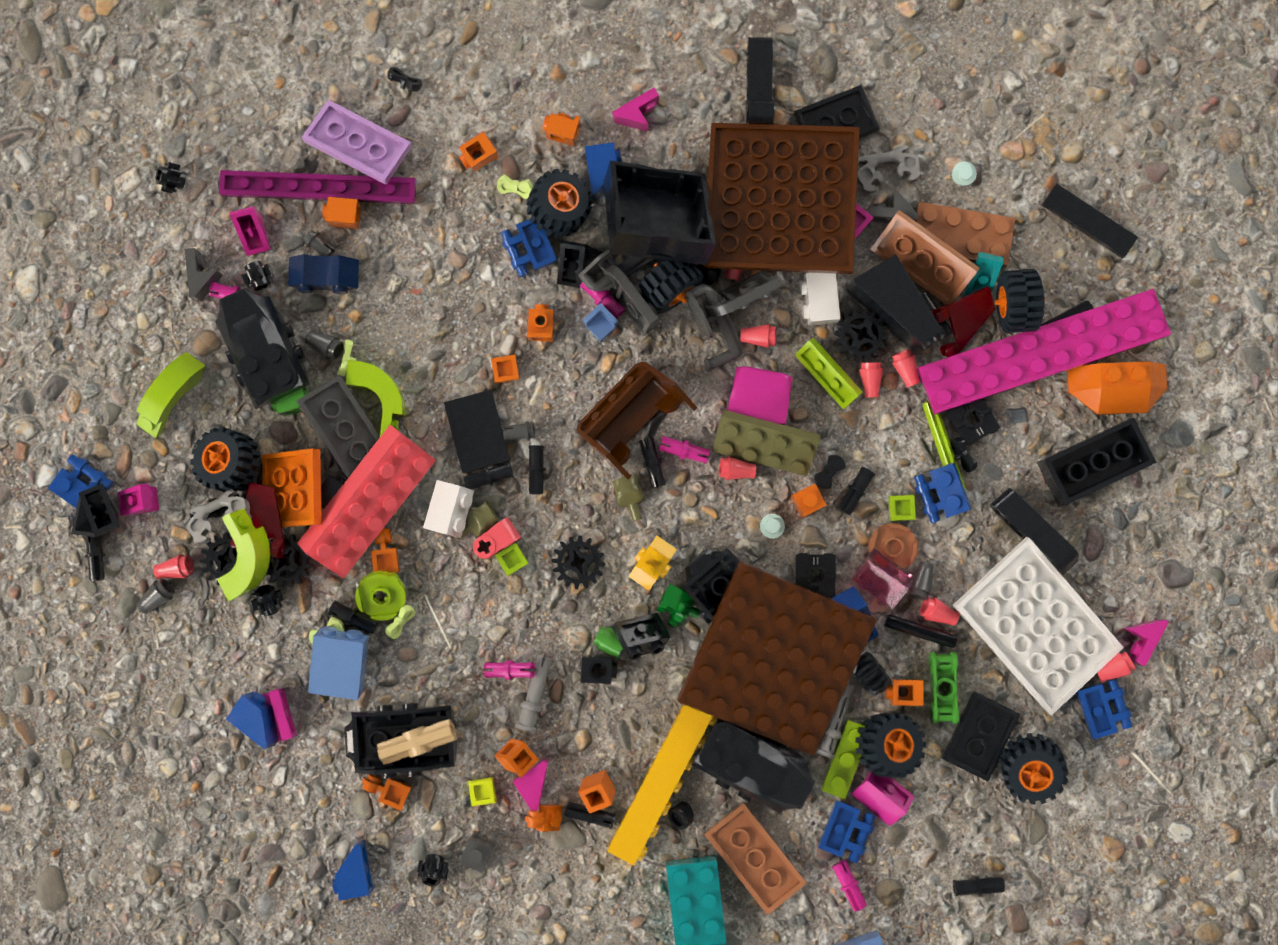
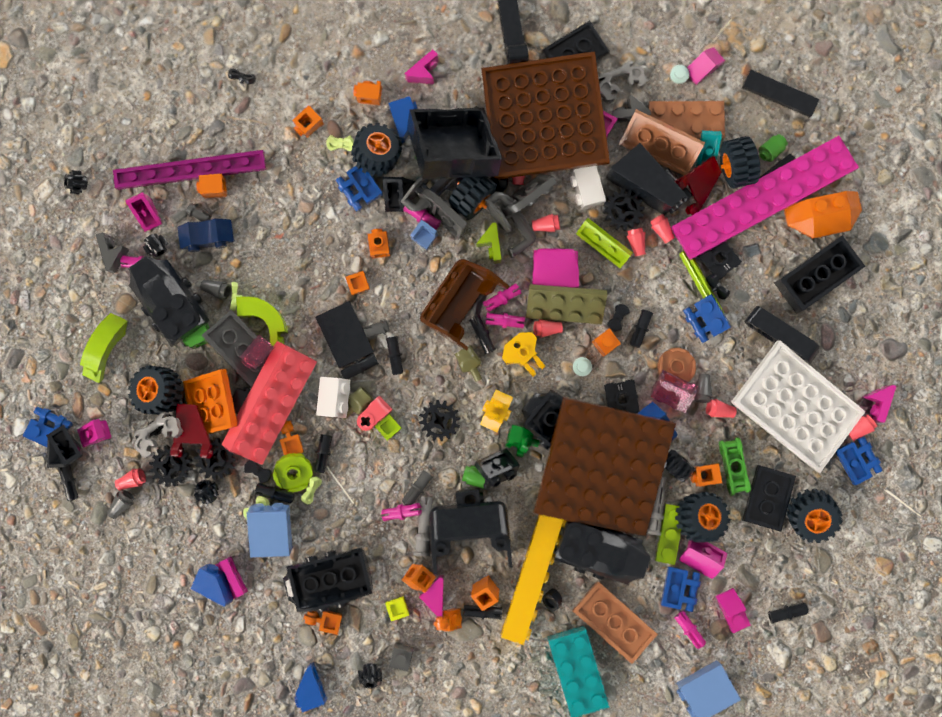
camera: 10 degrees left, 0 degrees up
(252, 555) = (188, 460): lime arch -> none
(343, 591) = (263, 474): none -> black piece
(357, 142) = (213, 130): lavender plate -> none
(361, 435) = (256, 352): none -> clear pink brick
(416, 741) = (340, 580): tan piece -> none
(423, 577) = (323, 452): none -> black axle
(534, 643) = (417, 488): none -> dark grey axle
(591, 698) = (469, 523): none -> black windscreen
(684, 342) = (490, 238): none -> lime slope
(685, 420) = (502, 297): none -> dark pink pin
(701, 495) = (523, 354): none -> yellow hinge
(901, 507) = (678, 335): lime plate -> none
(909, 870) = (733, 610): none -> dark pink slope
(921, 631) = (709, 426): black axle -> none
(999, 167) = (705, 64): none -> slope
(1066, 289) = (772, 148): none -> bright green brick

